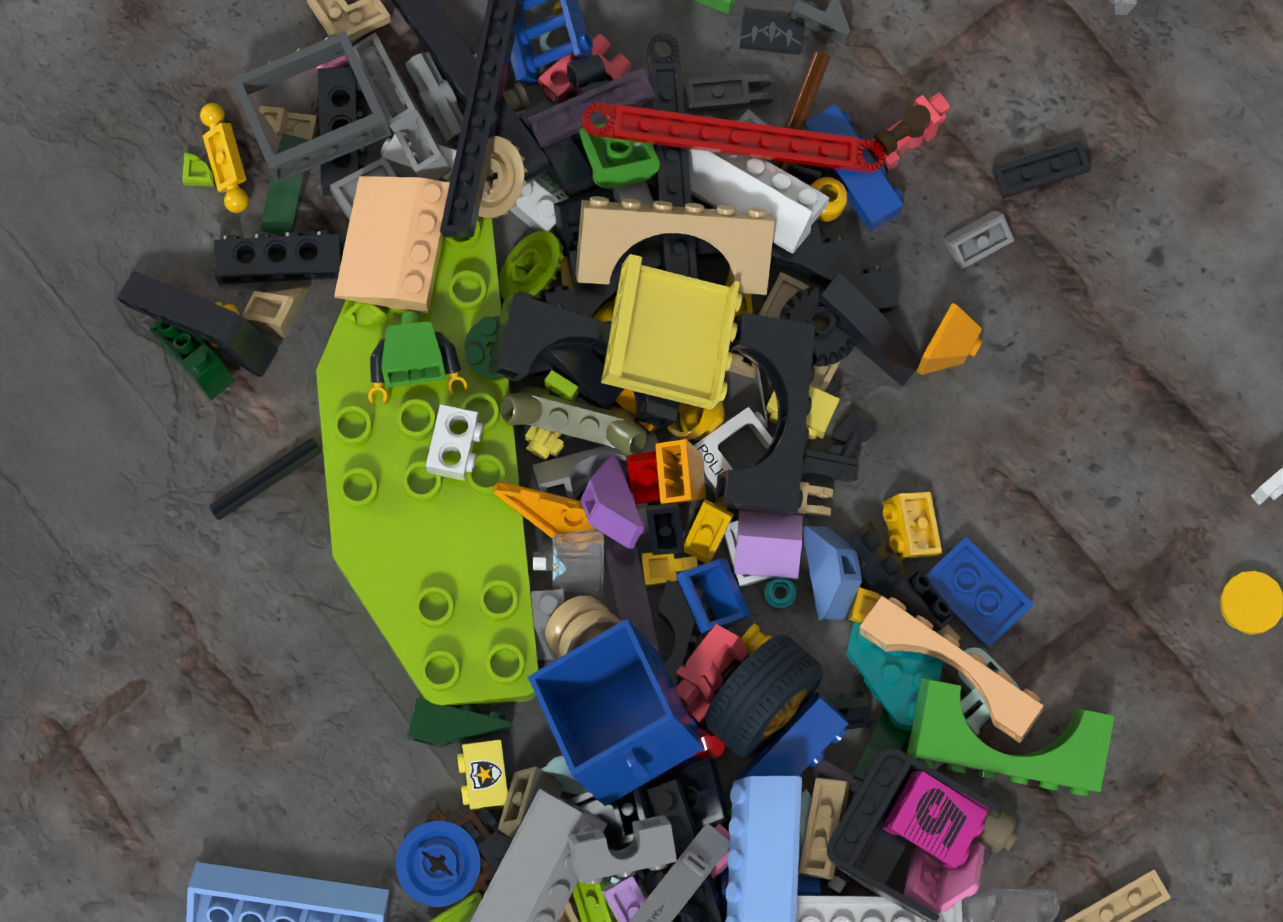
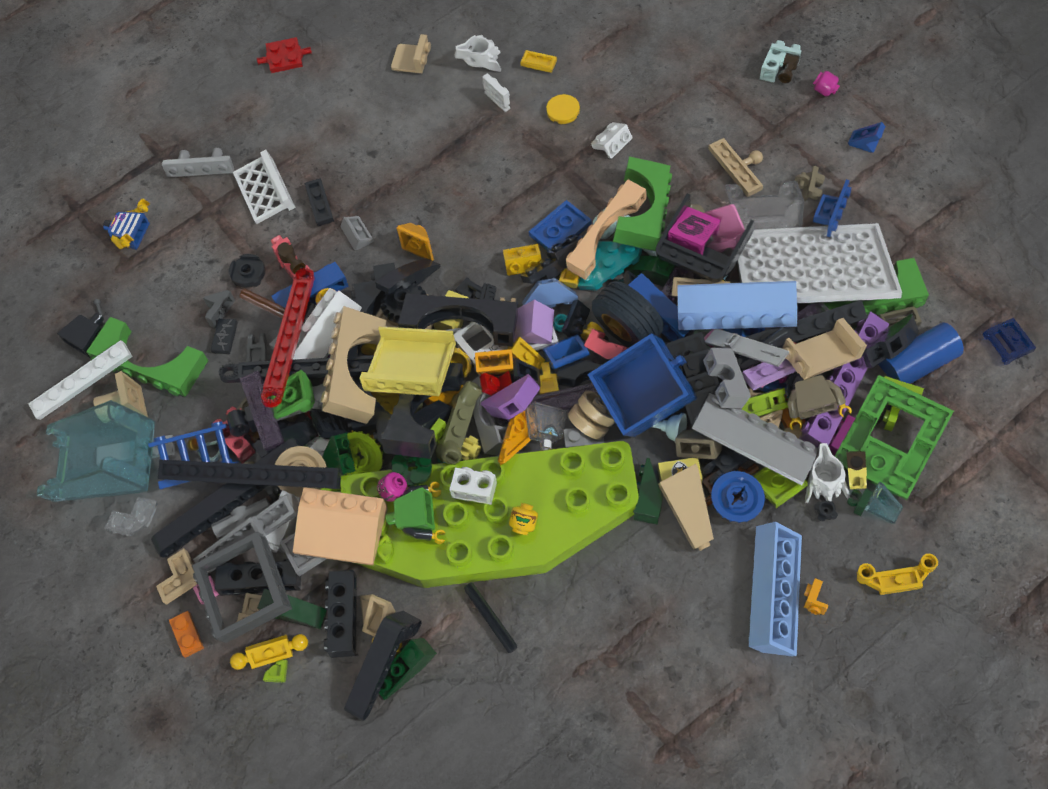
camera: 80 degrees left, 15 degrees down
(260, 36) = (186, 634): none -> orange plate
(398, 521) = (523, 519): none -> yellow head
(424, 782) = (688, 504): none -> tan slope
(456, 317) = (391, 486): none -> dark pink head
(521, 235) = (339, 454): none -> dark green slope
(781, 616) = (576, 319): none -> black plate
(893, 76) = (249, 279): none -> black plate
(1081, 94) = (274, 182): none -> white fence
(1175, 691) = (612, 139): none -> white bracket

